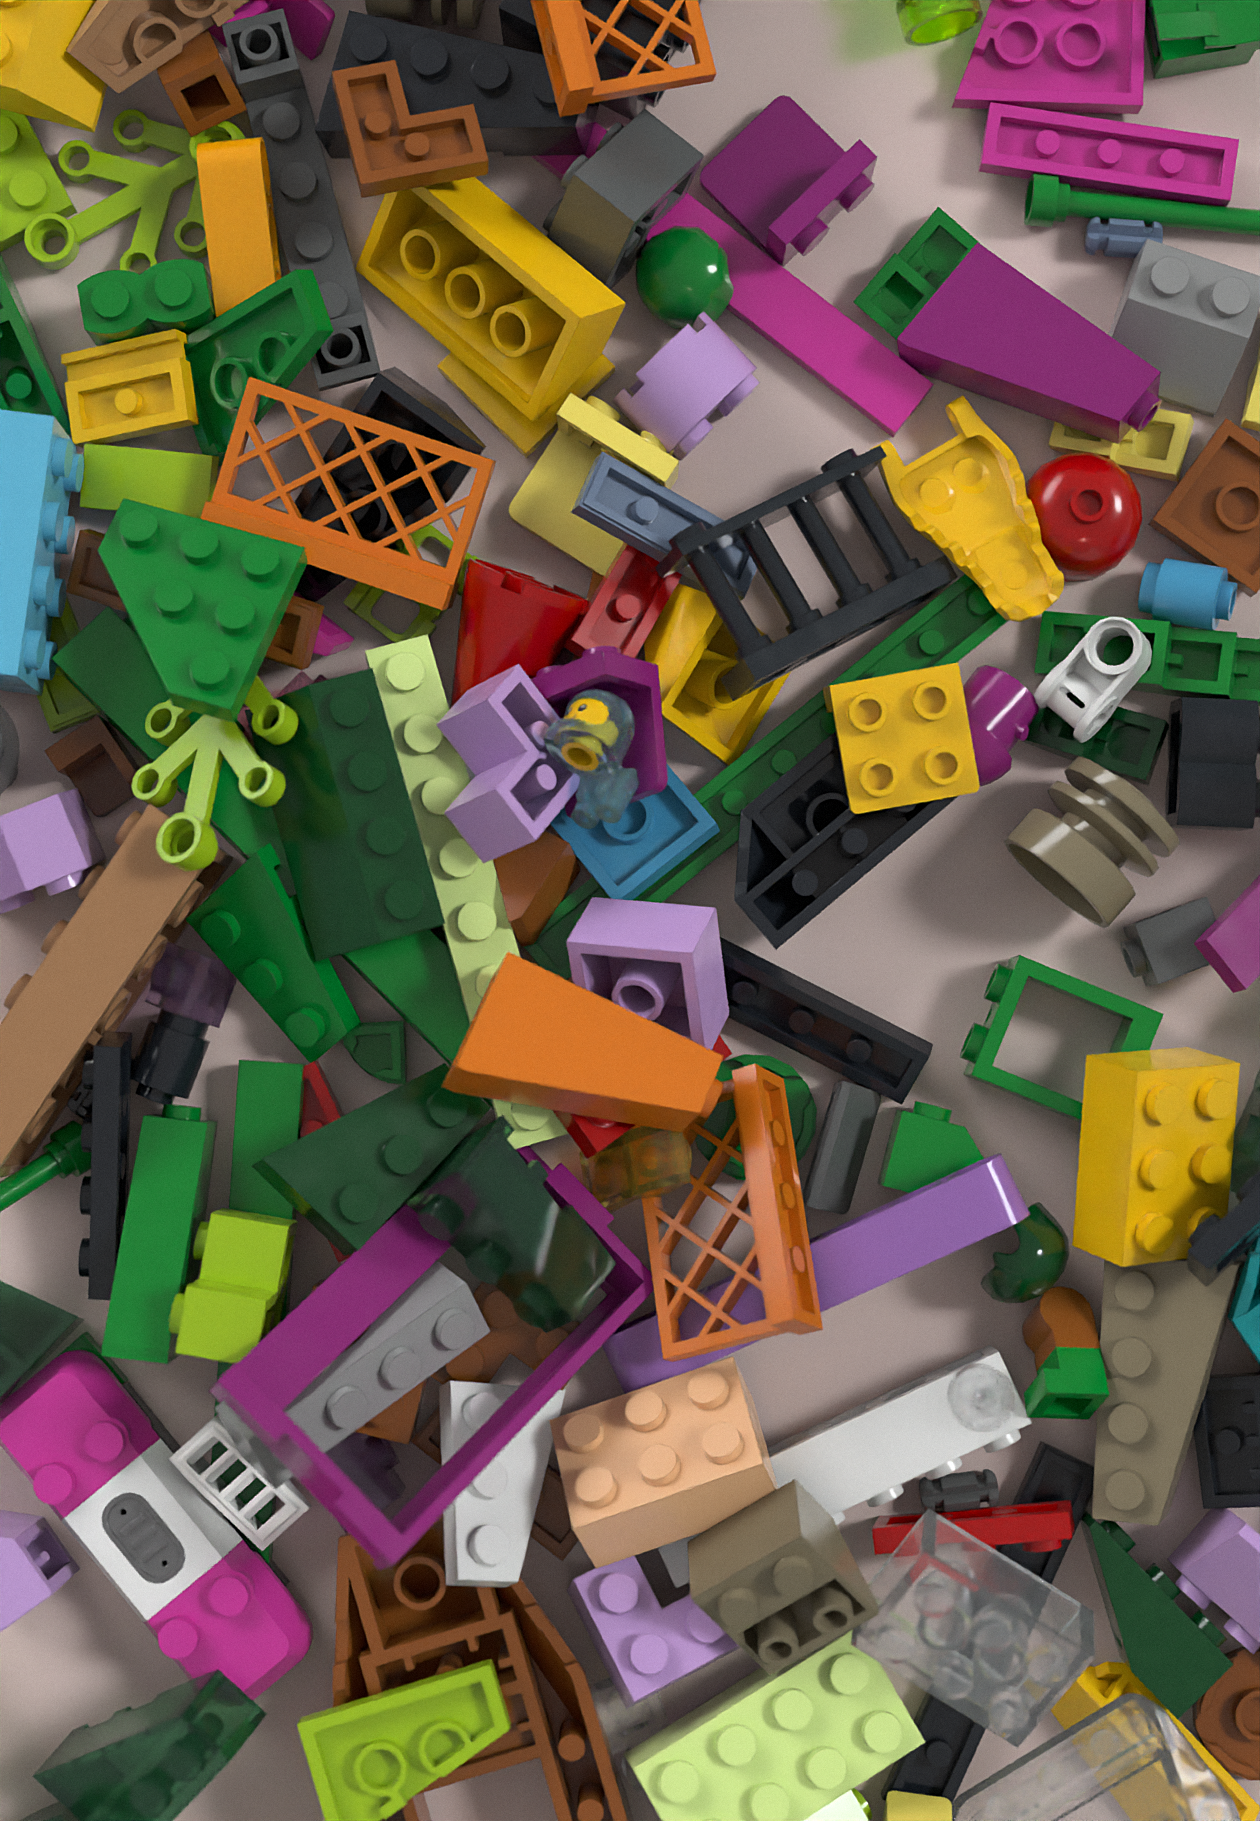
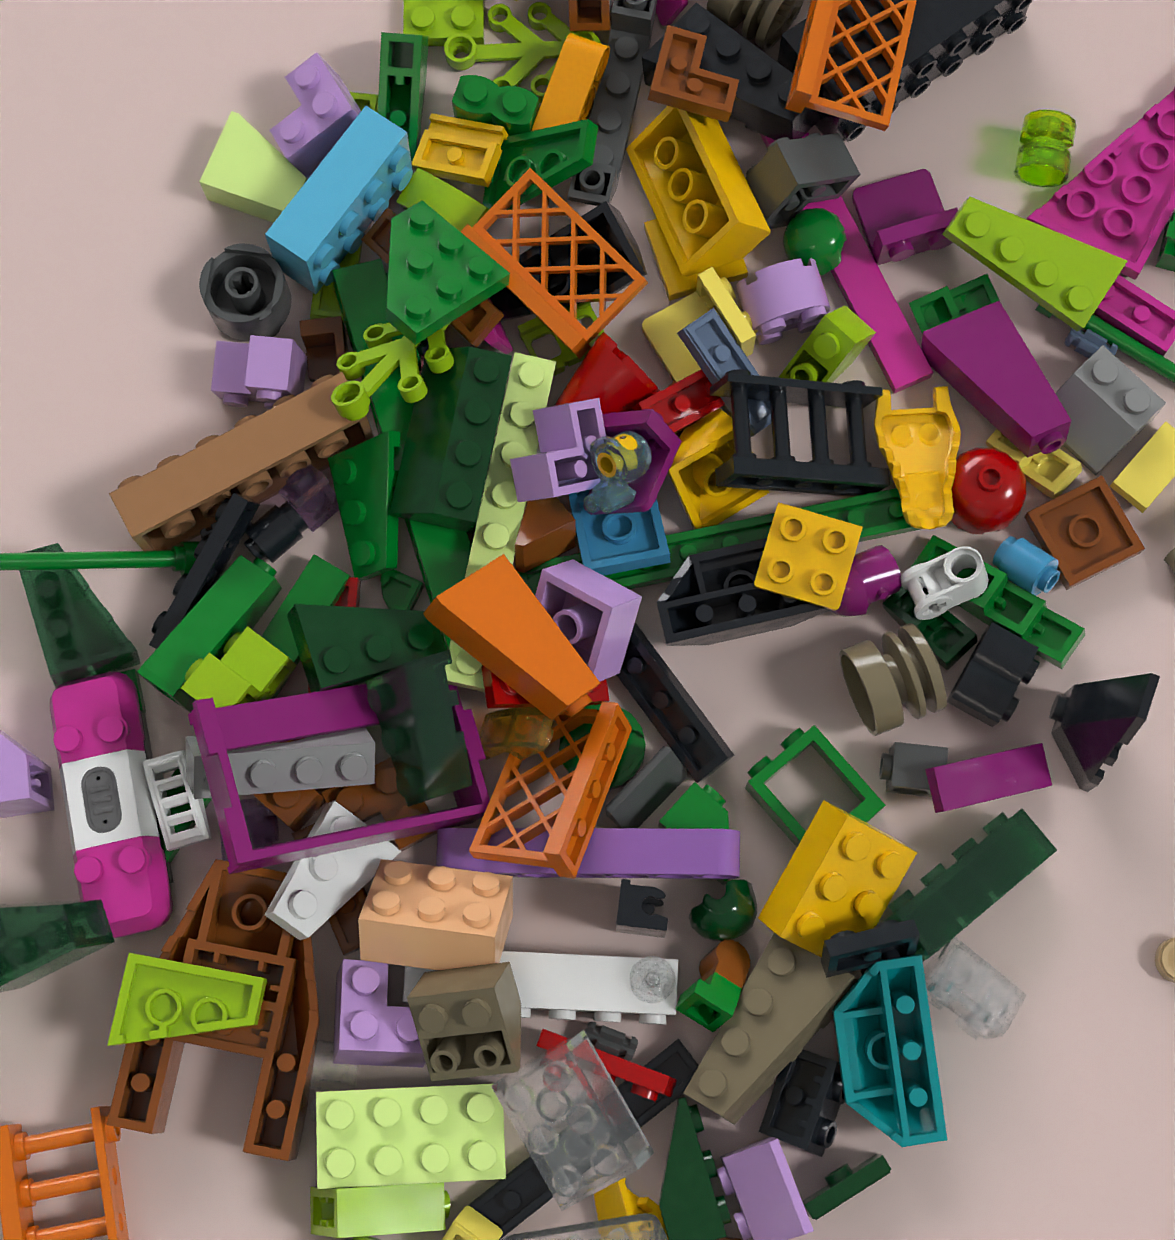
camera: 30 degrees right, 10 degrees down
(779, 427) = (830, 347): none -> lime slope
(915, 1319) = (634, 907): none -> black hinge
(1009, 161) = (1041, 263): none -> lime wing

